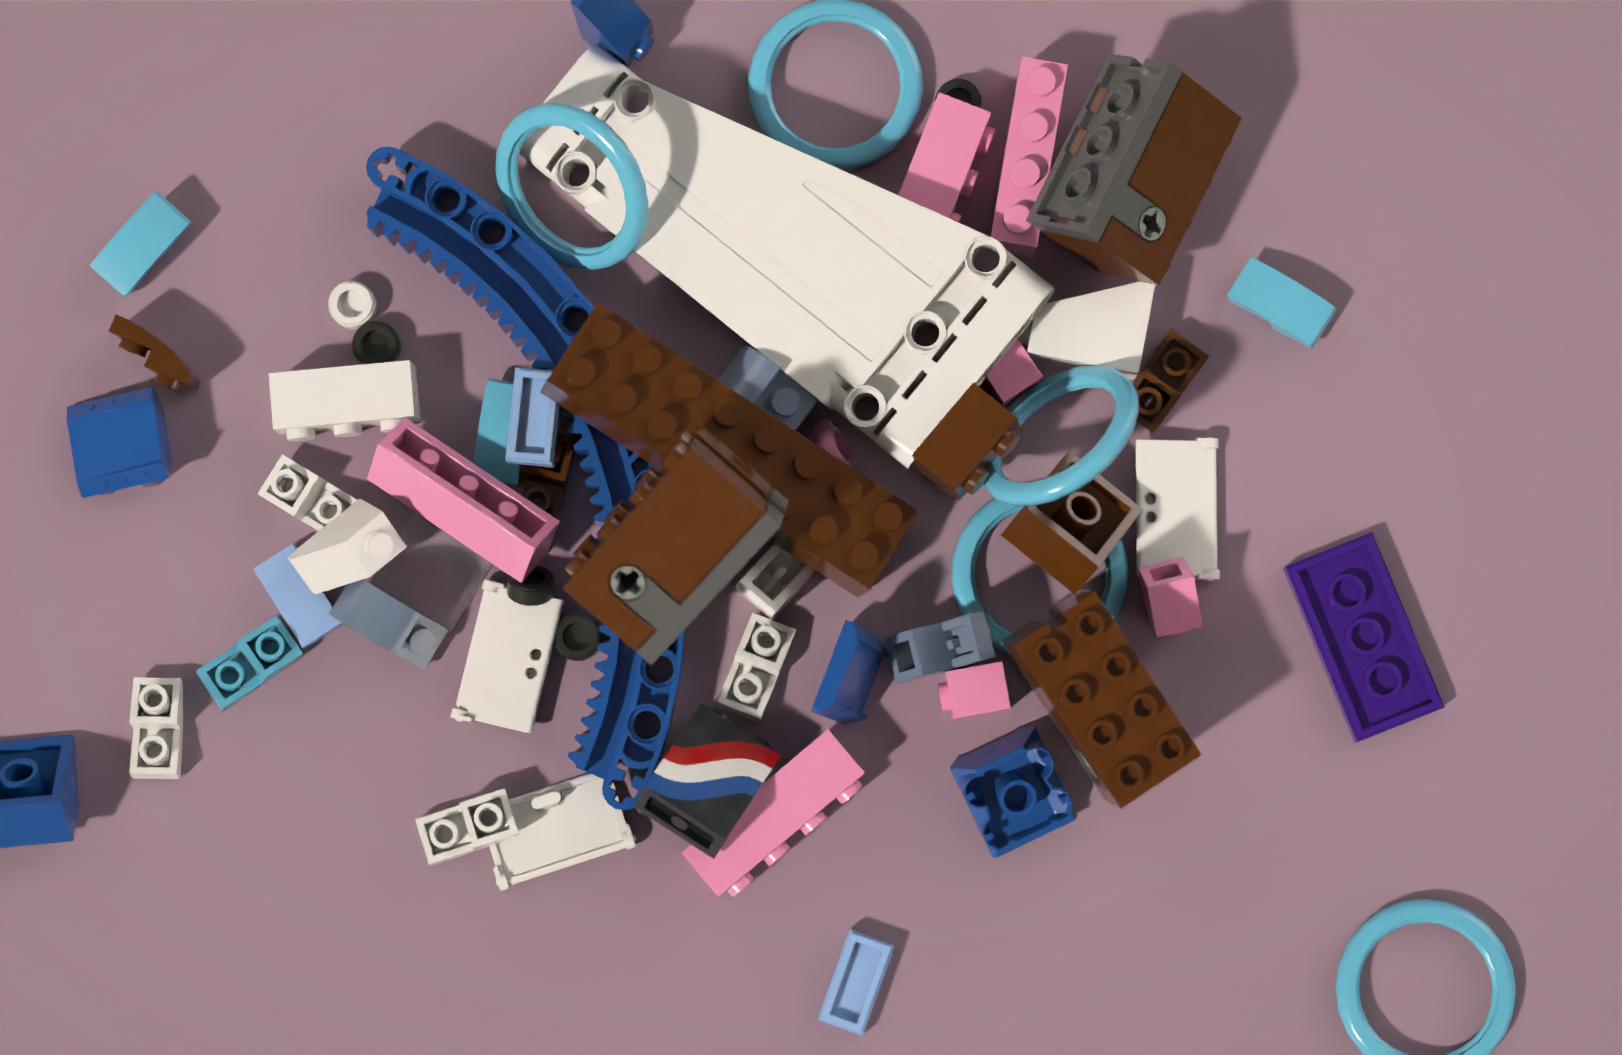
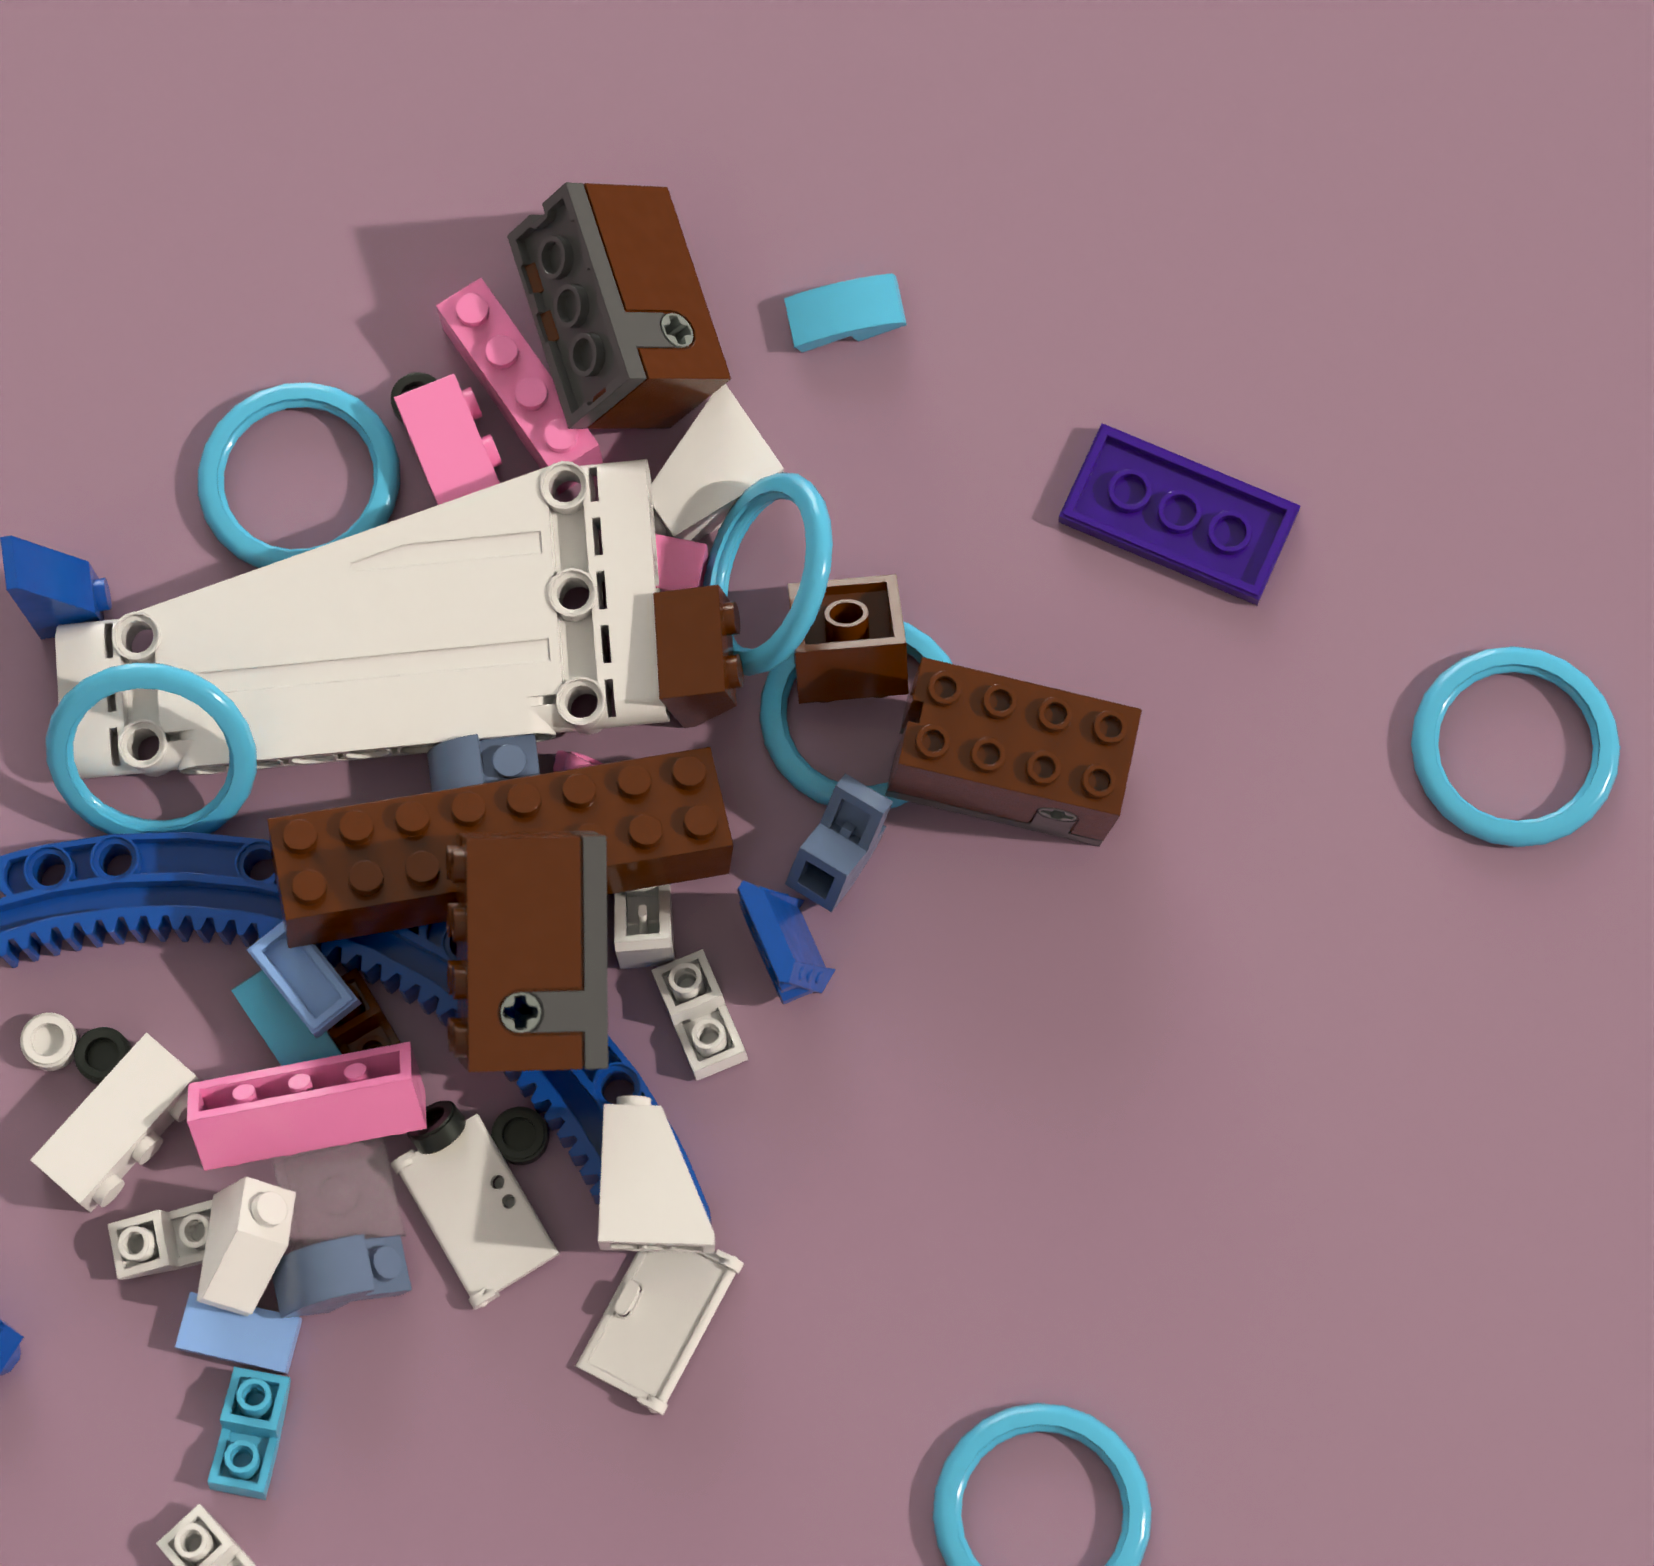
camera: 45 degrees left, 10 degrees down
(467, 827) = (580, 1387): white slope -> none
(615, 750) = (646, 1186): none -> white slope
(707, 780) = (751, 1140): panel -> none
(780, 807) = (834, 1118): bright pink brick -> none
(856, 982) = (1043, 1196): light blue tile -> none
(974, 691) = (904, 855): bright pink brick -> none
(1013, 790) = (1017, 907): blue slope -> none
(1166, 378) = (810, 451): reddish brown slope -> none
(1170, 597) = (990, 625): bright pink brick -> none
(1184, 504) = (947, 565): white door -> none

